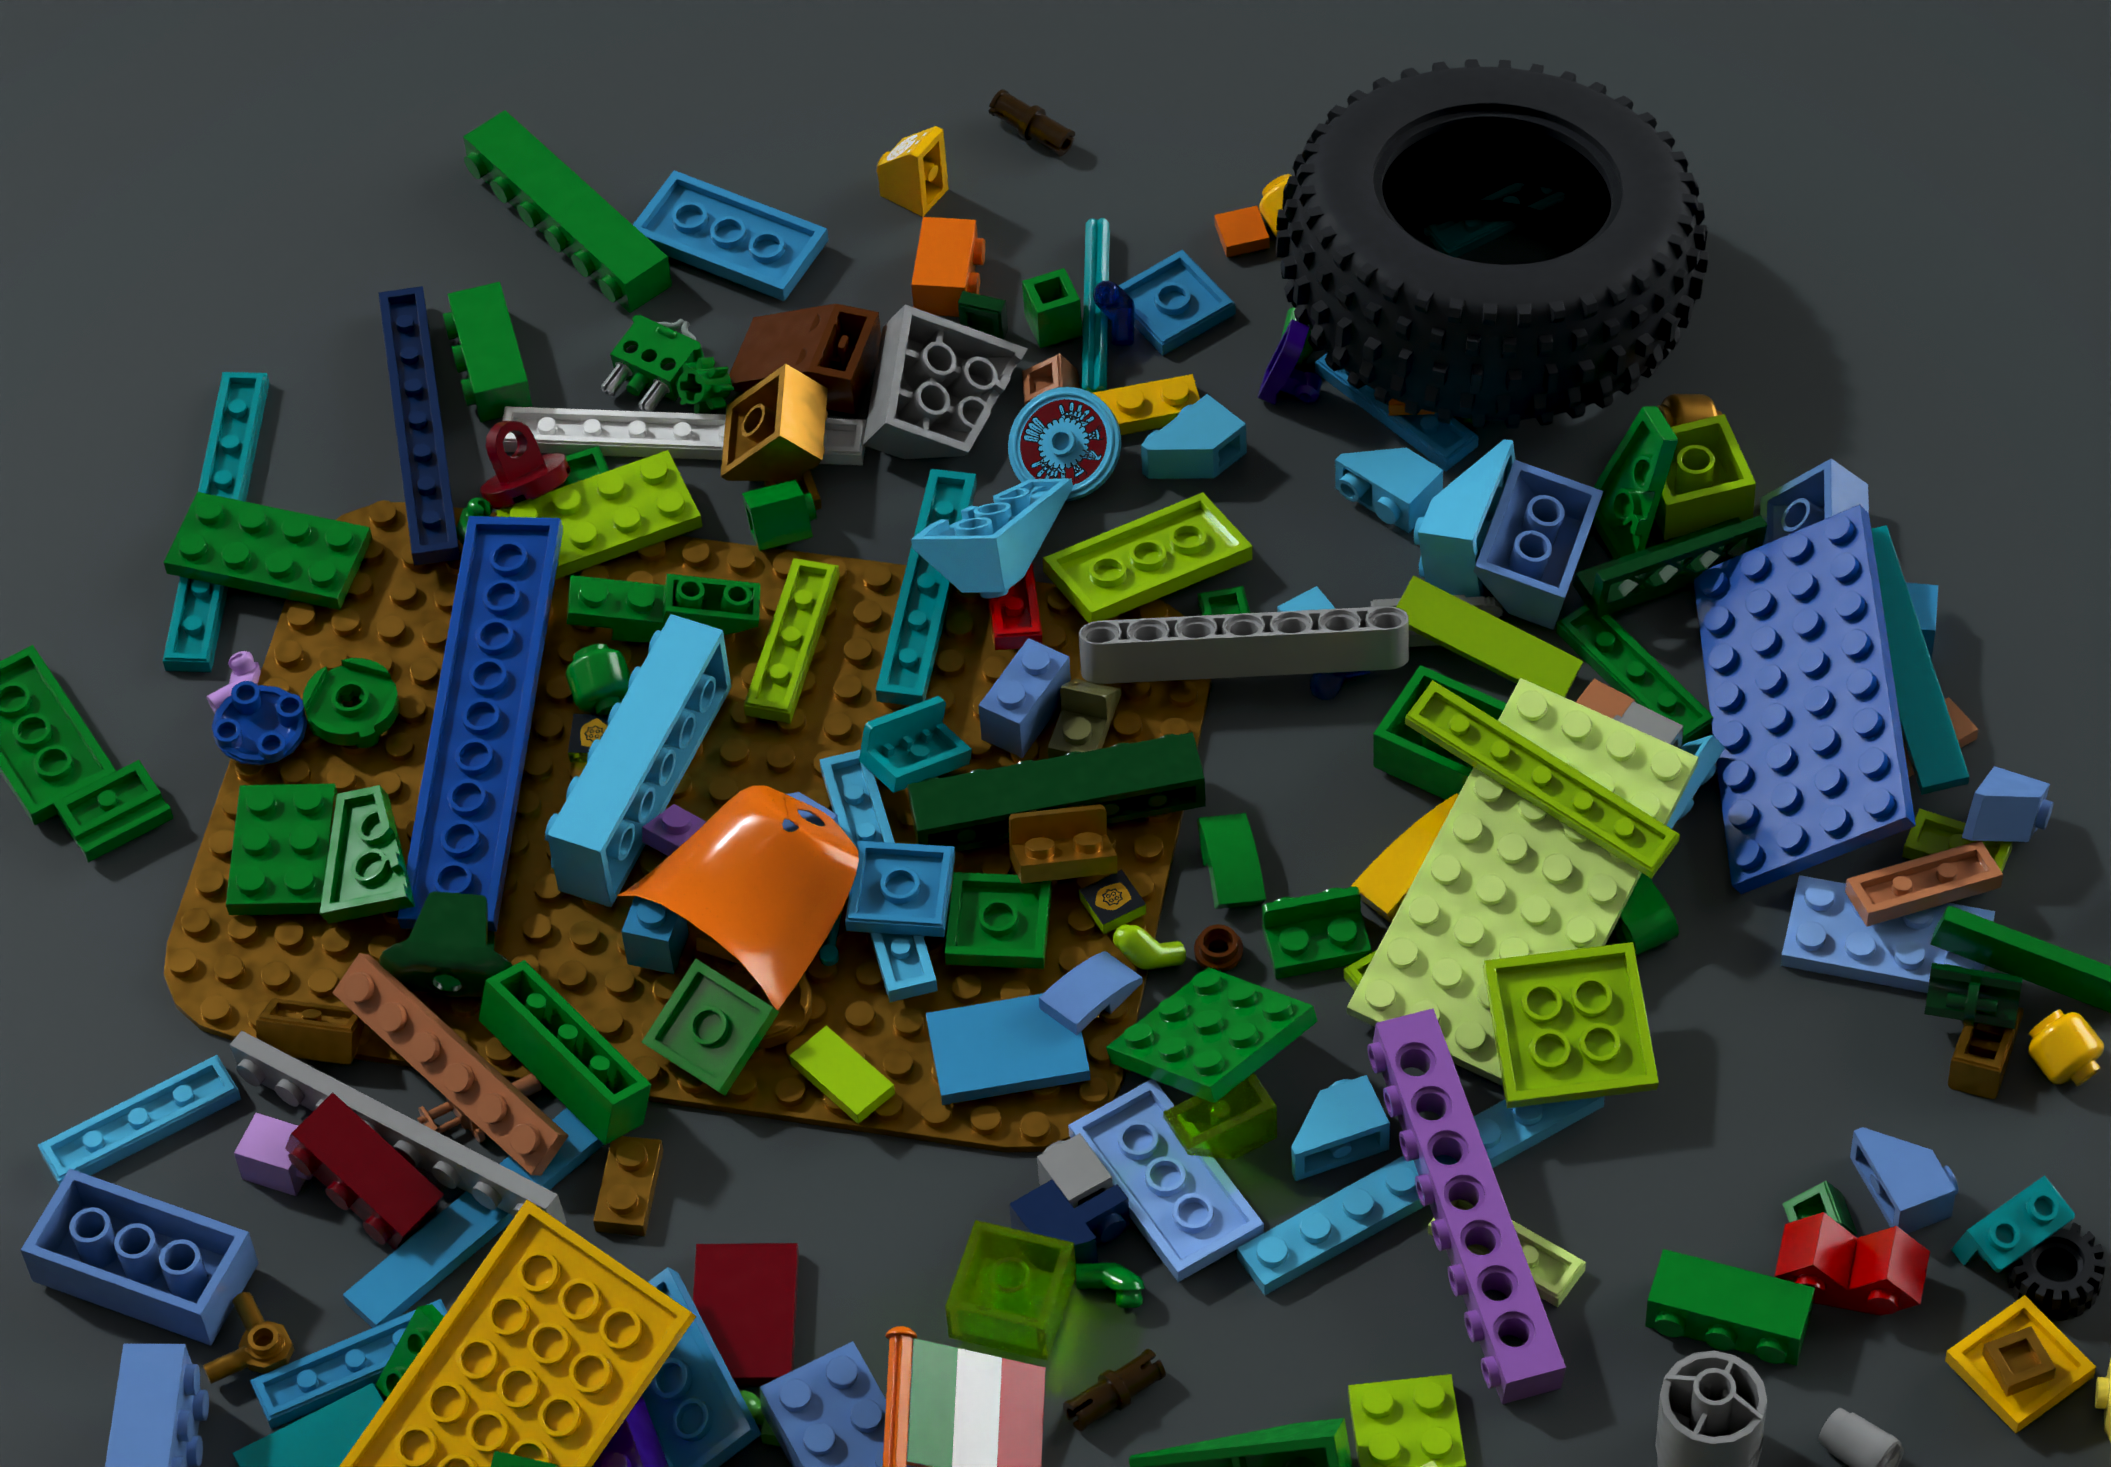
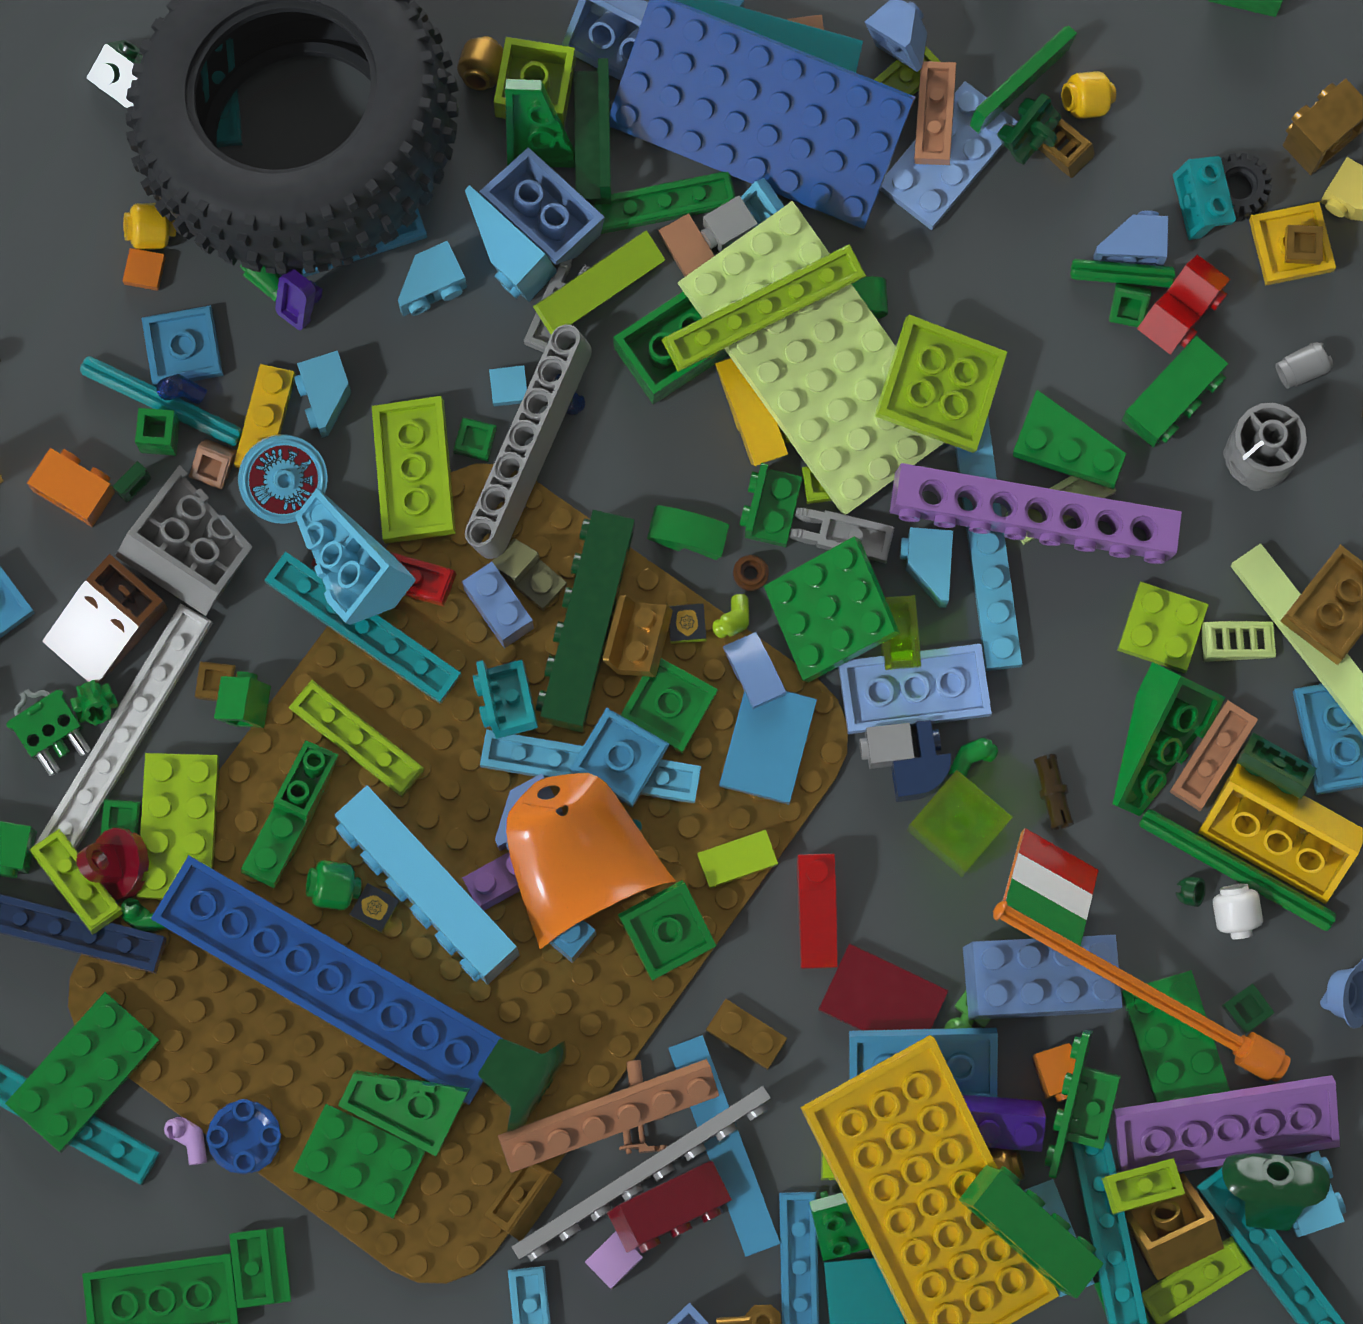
camera: 70 degrees left, 25 degrees up
(356, 724) = (279, 1066): green plate -> none
(467, 464) = (87, 898): none -> lime tile
(564, 1052) = (642, 1035): green brick -> none
(775, 429) = (168, 672): pearl gold slope -> none
(826, 1187) = (817, 910): none -> red slope
(1329, 1042) = (839, 527): none -> light grey hinge
(1584, 1215) = (1067, 445): none -> green wing
(1851, 1179) = (1122, 273): none -> green axle

